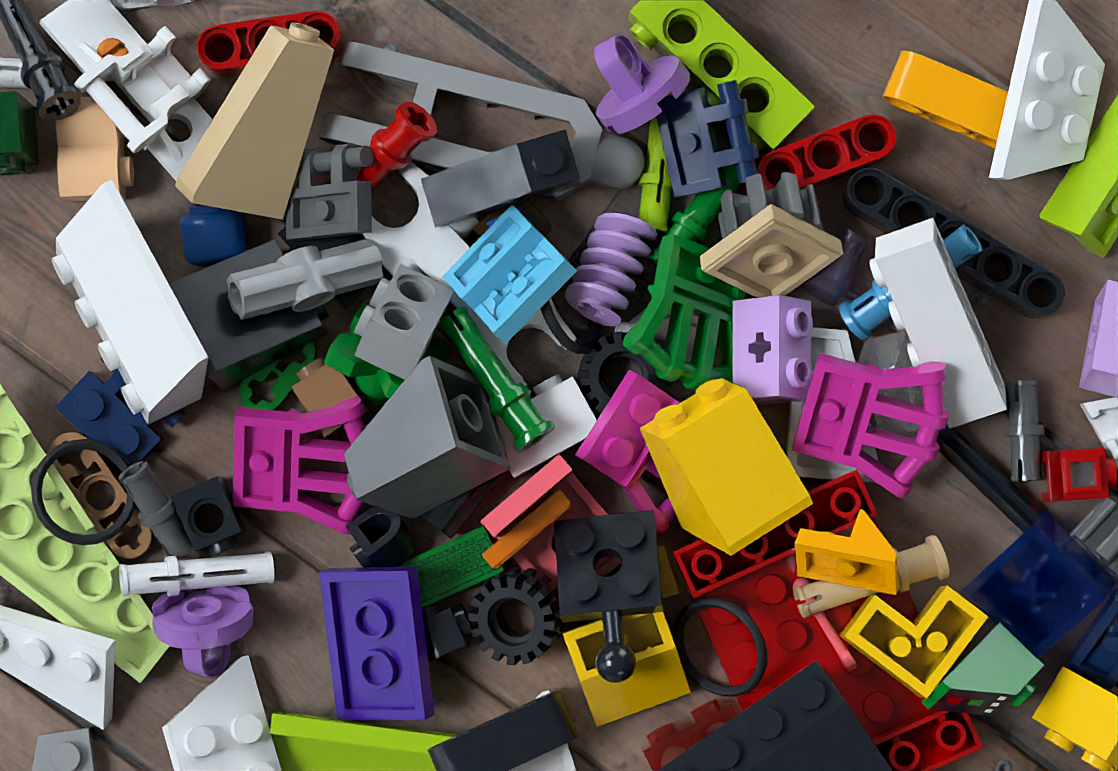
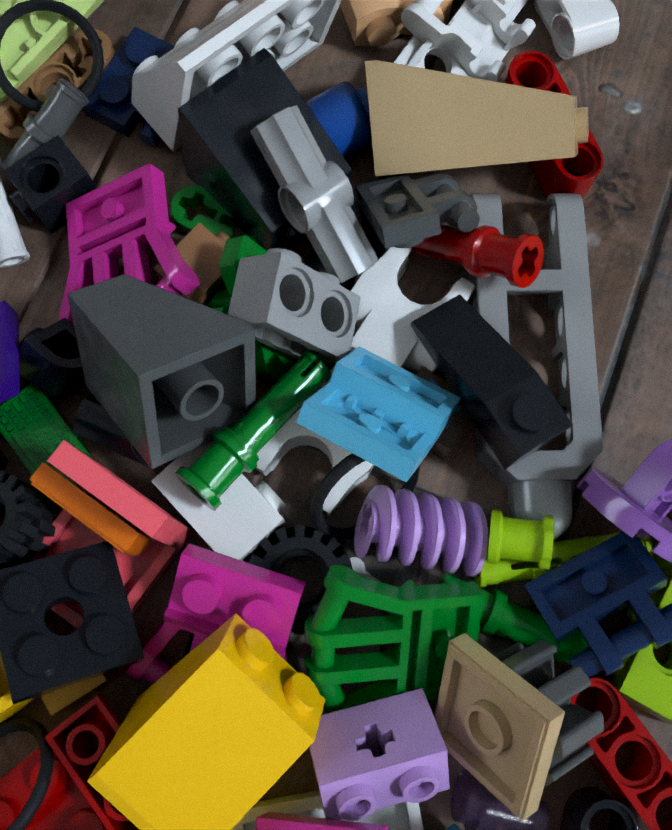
camera: 75 degrees right, 10 degrees down
(638, 190) = (521, 539): none -> lime bush

